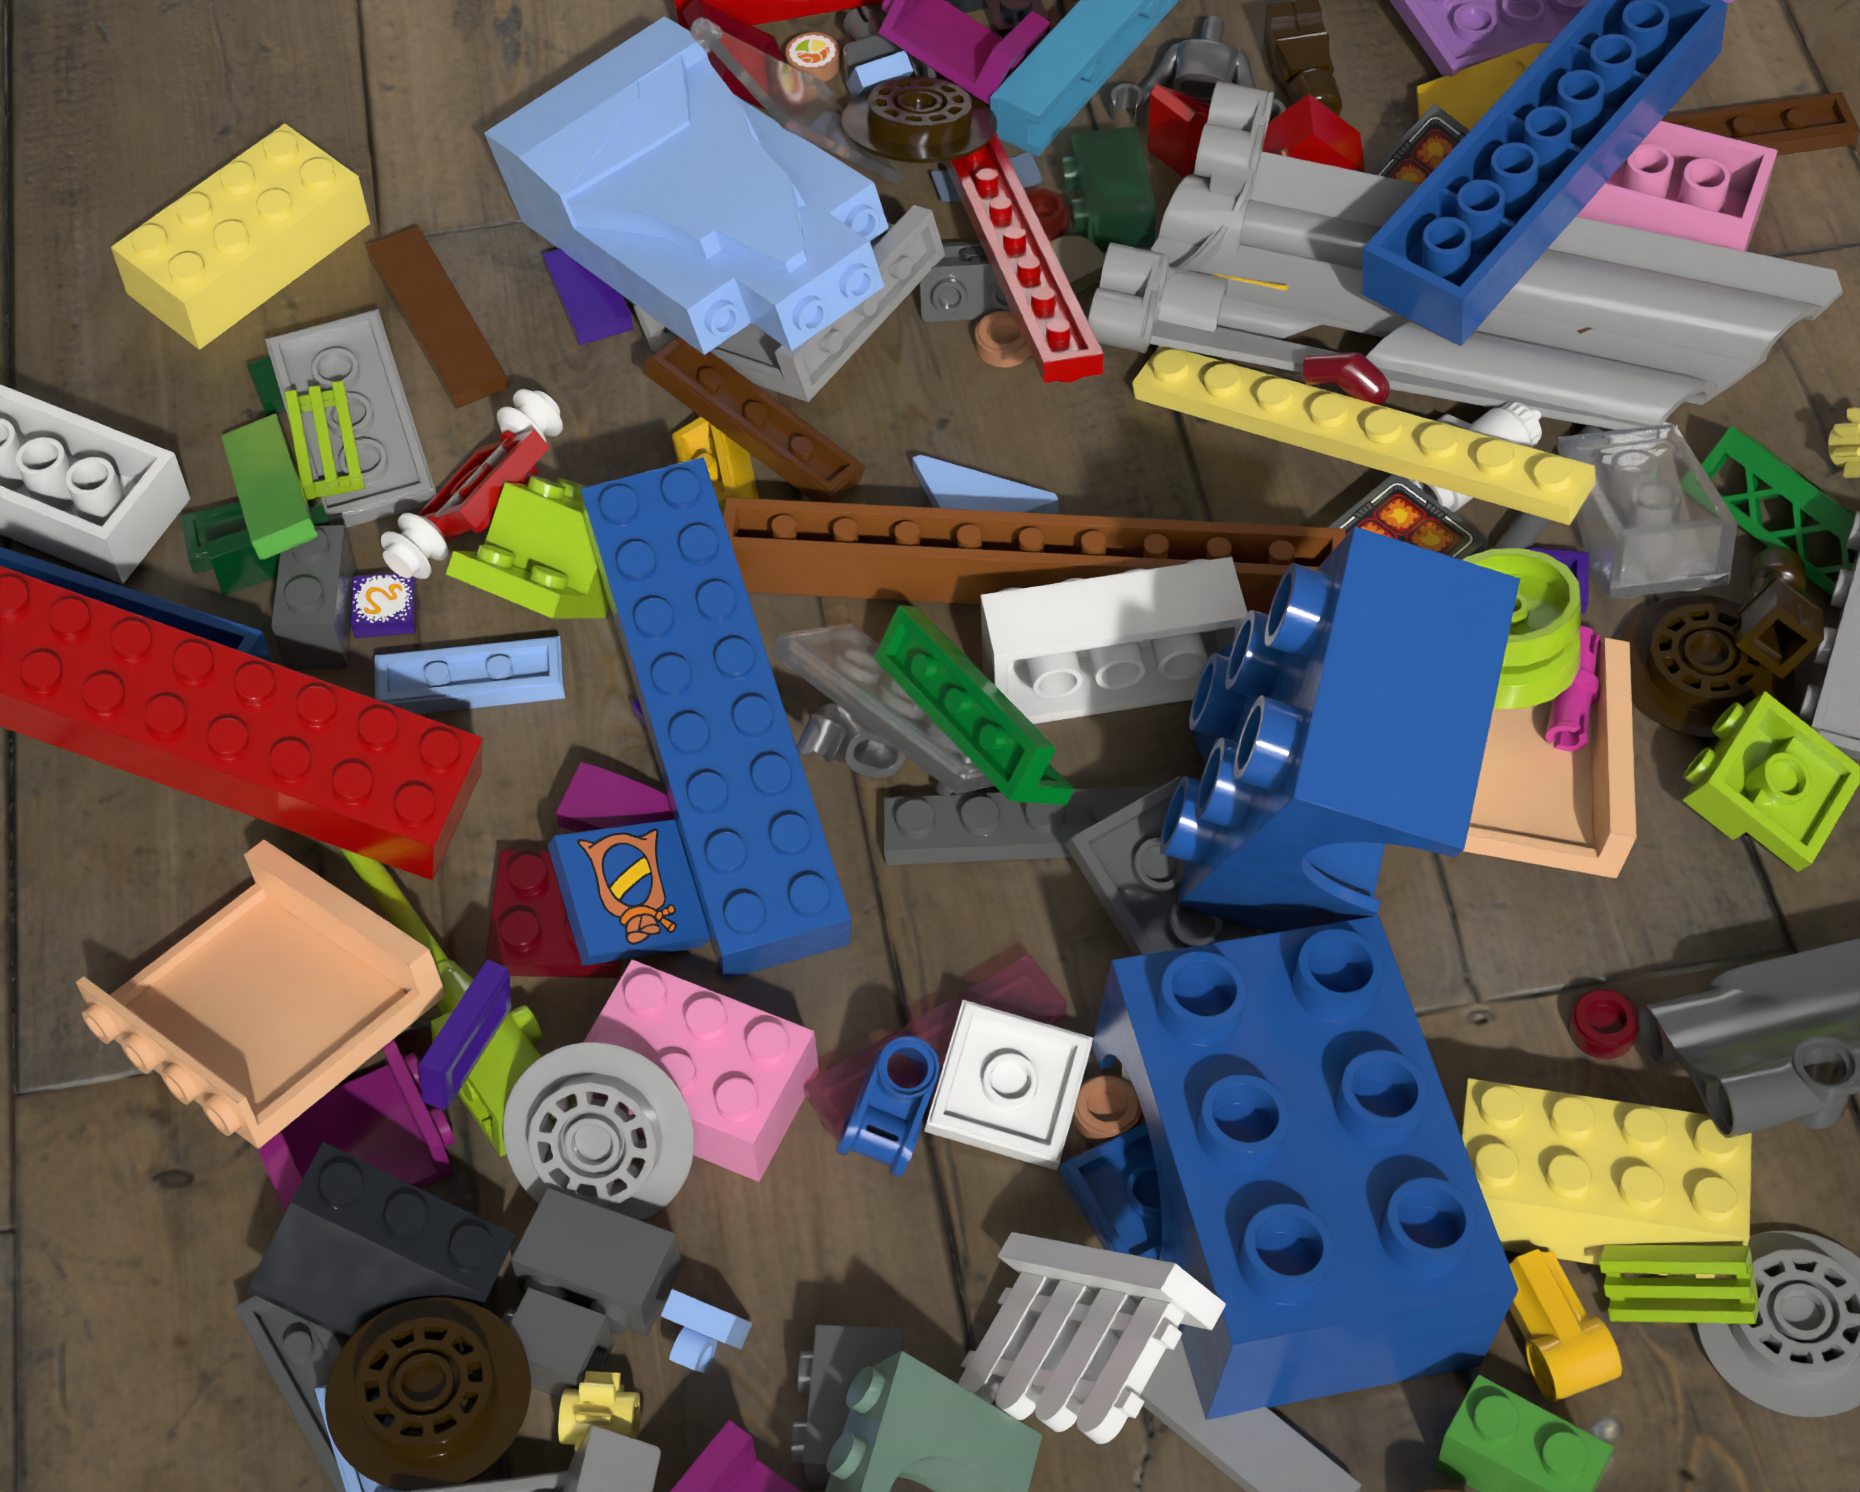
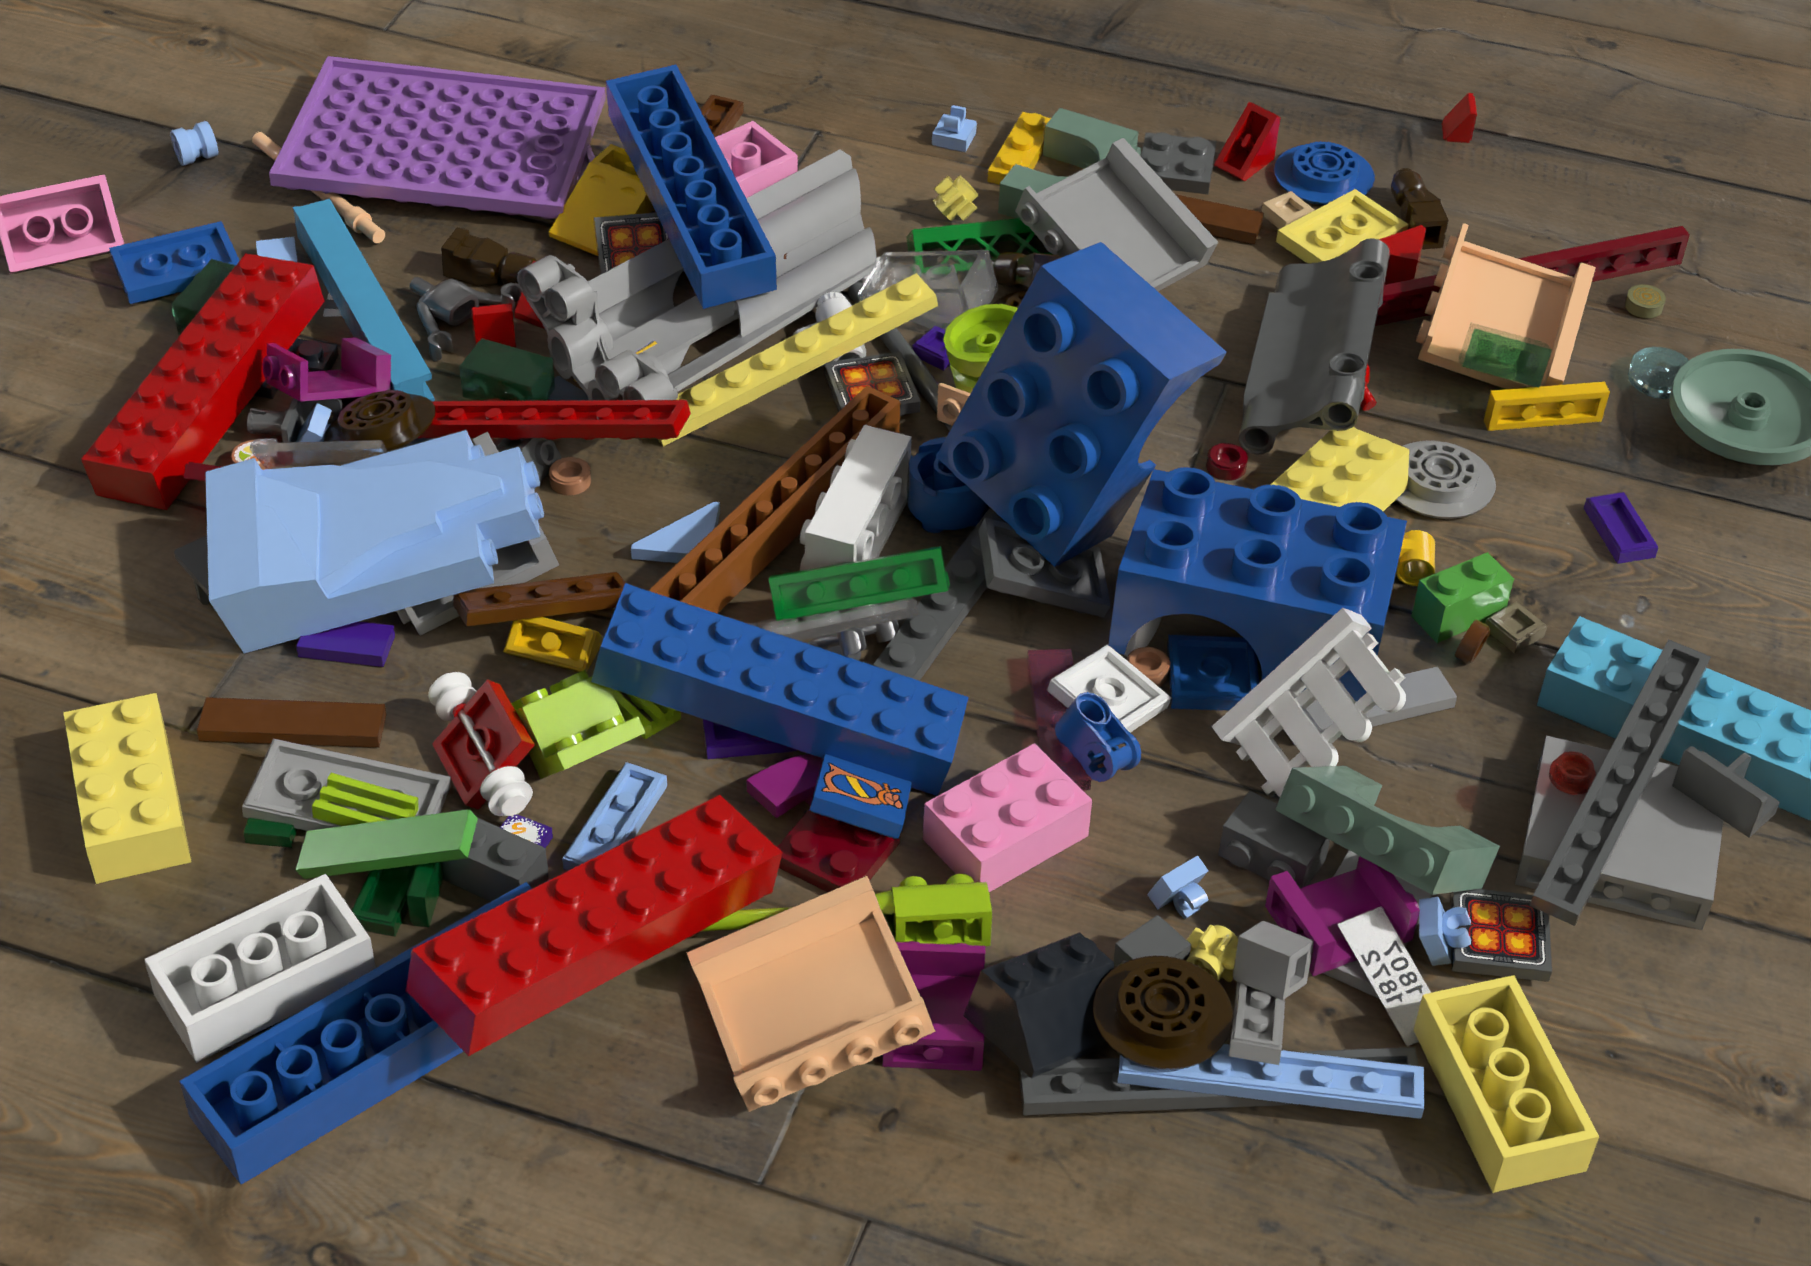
camera: 65 degrees left, 10 degrees down
(465, 1035) = (933, 891): dark purple tile -> none
(595, 1136) = (1045, 868): light grey wheel -> none
(598, 1261) = (1107, 909): dark grey brick -> none
(1351, 372) = (755, 336): dark red arm -> none
(1680, 1294) = (1415, 497): lime tile -> none

